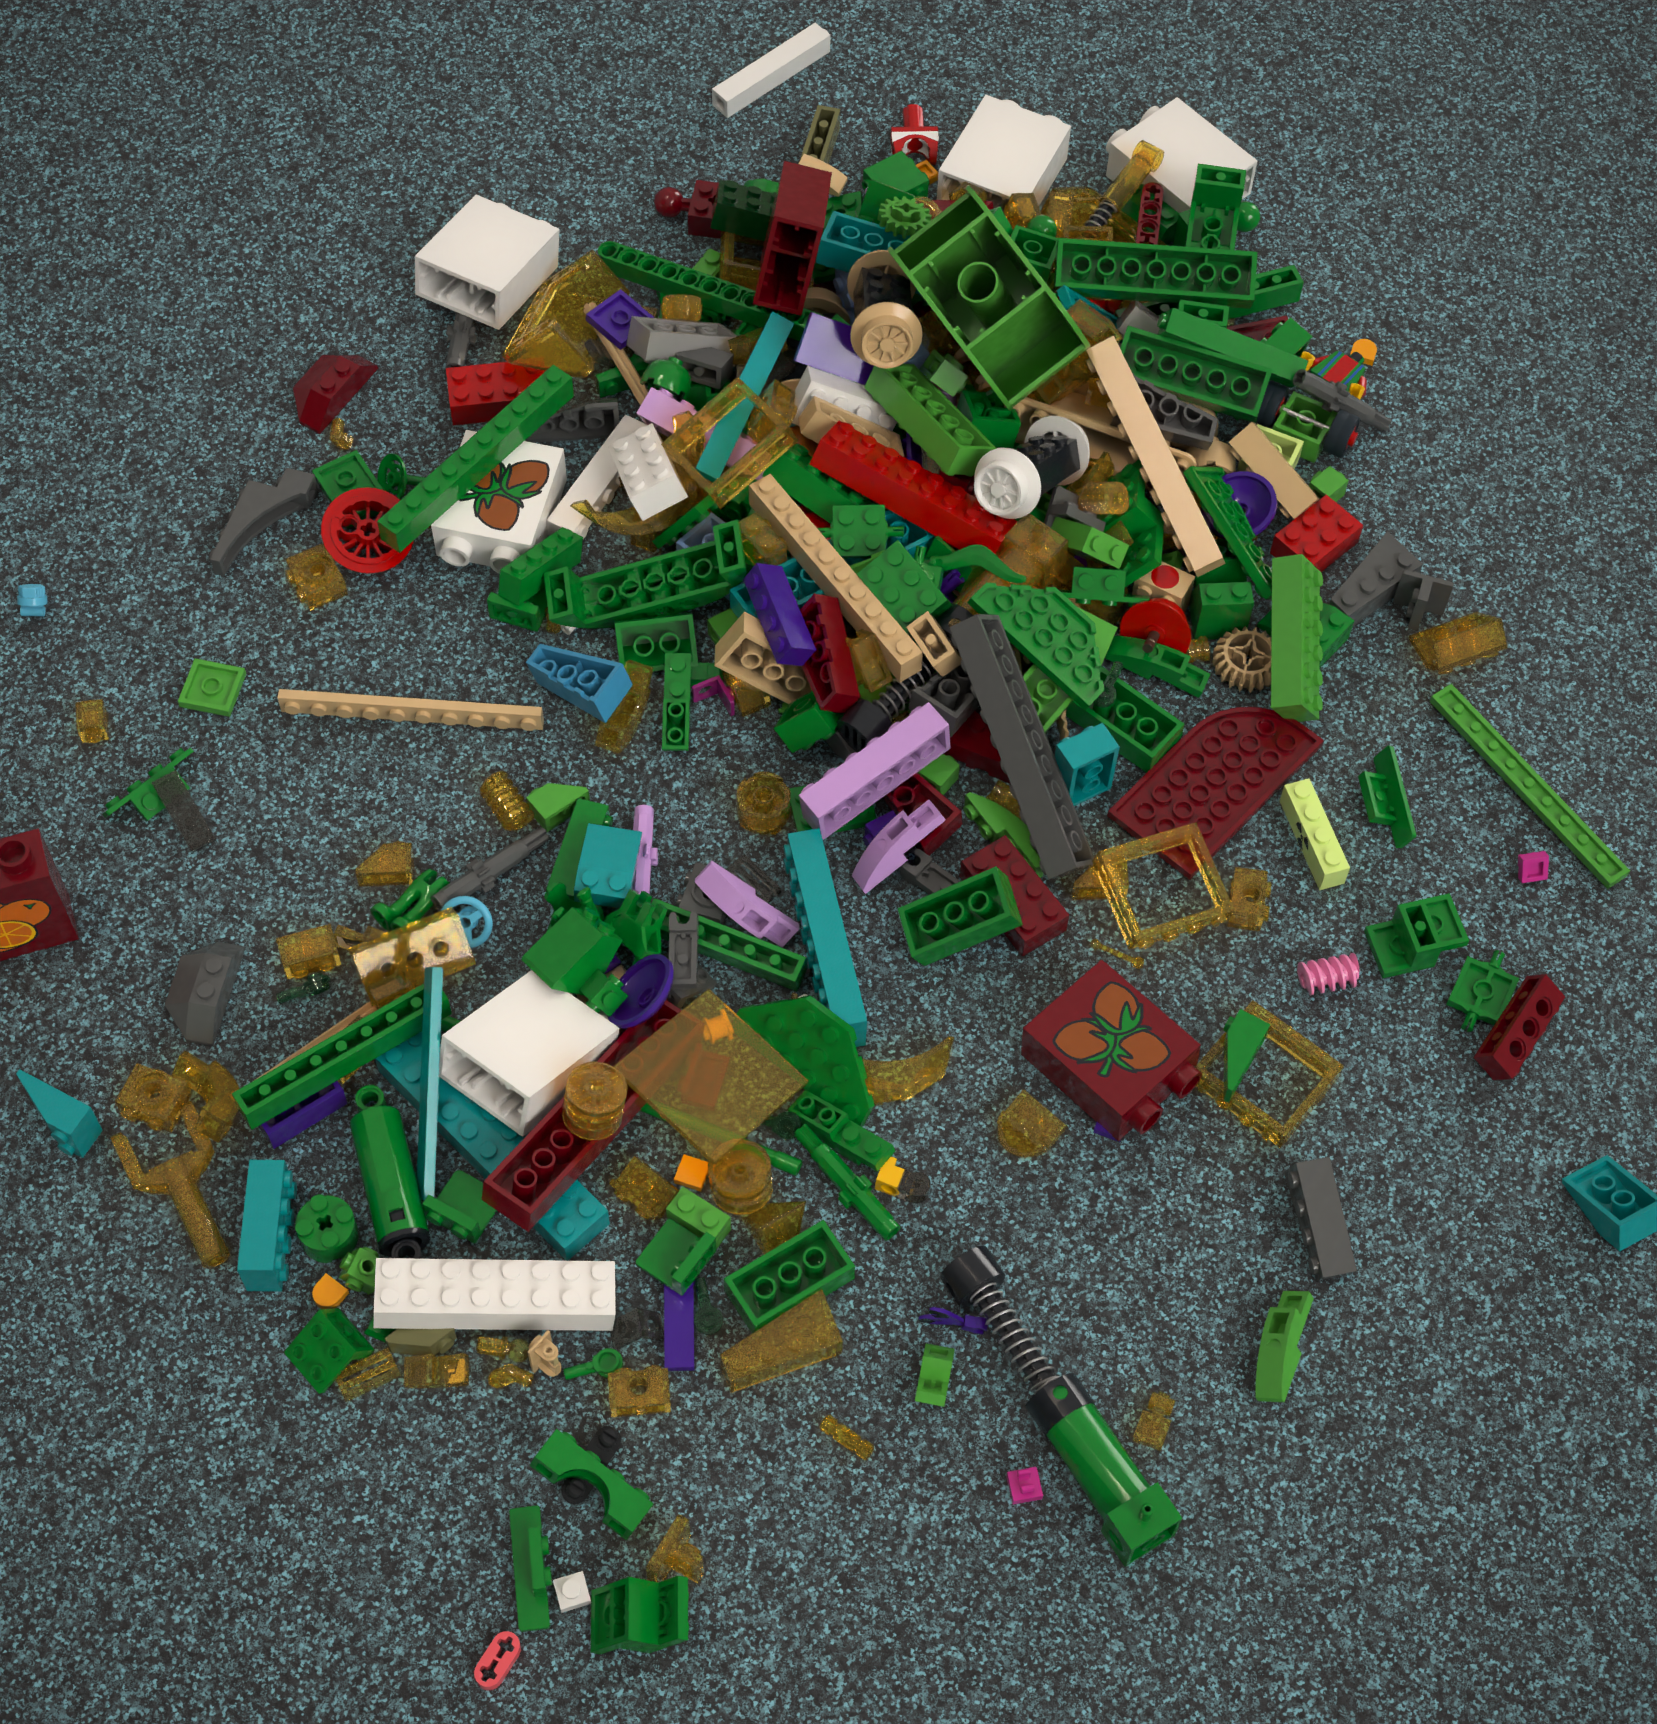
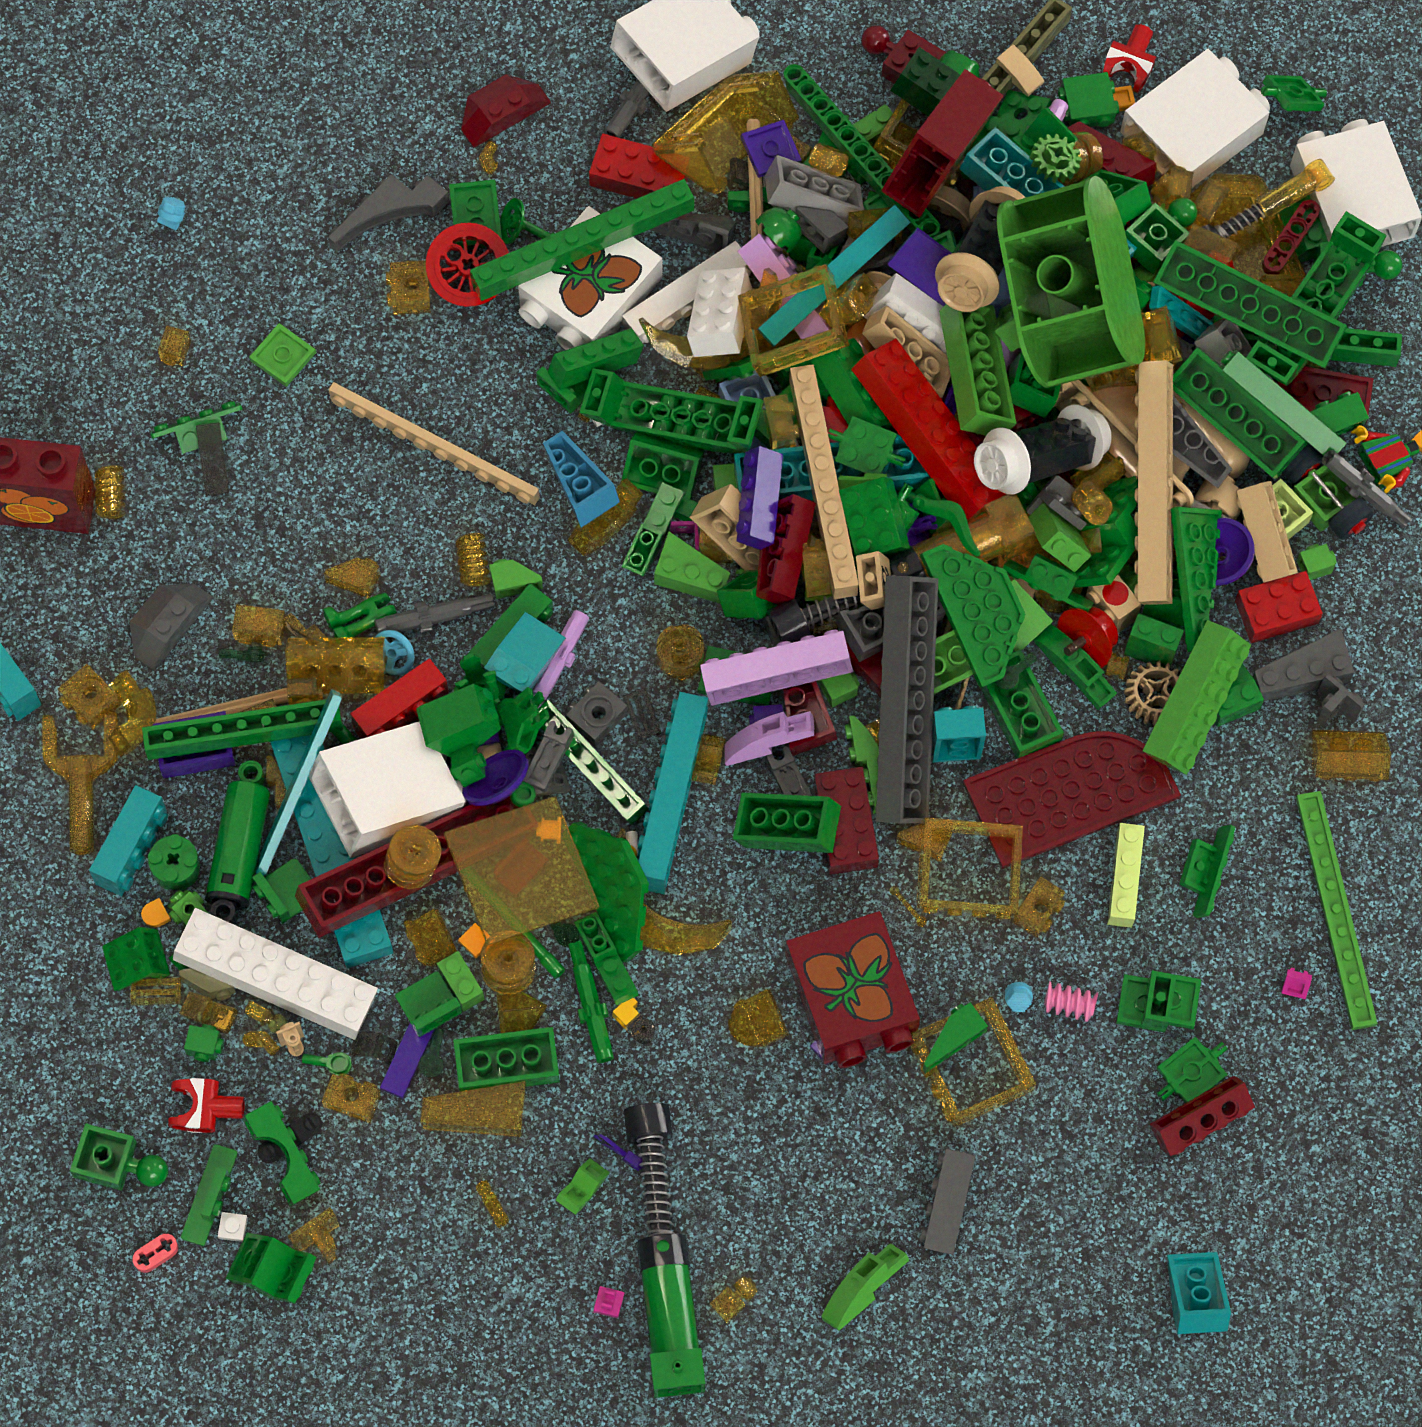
camera: 25 degrees right, 10 degrees up
(85, 885) = (109, 492): none -> clear yellow piece
(400, 1098) = (275, 780): none -> clear yellow slope
(407, 1592) = (112, 1172): none -> green brick
(447, 1404) = (203, 1043): none -> green brick
(481, 1471) = (206, 1105): none -> red connector
(498, 961) = (398, 702): none -> red brick
(676, 1001) = (523, 795): none -> green tile
(734, 726) = (689, 570): none -> bright green wedge
(744, 907) = (614, 736): lavender slope -> none
(847, 894) = (708, 759): none -> clear yellow slope
(1079, 111) = (1293, 93): none -> green plate
(1275, 991) = (1018, 996): none -> medium azure piece

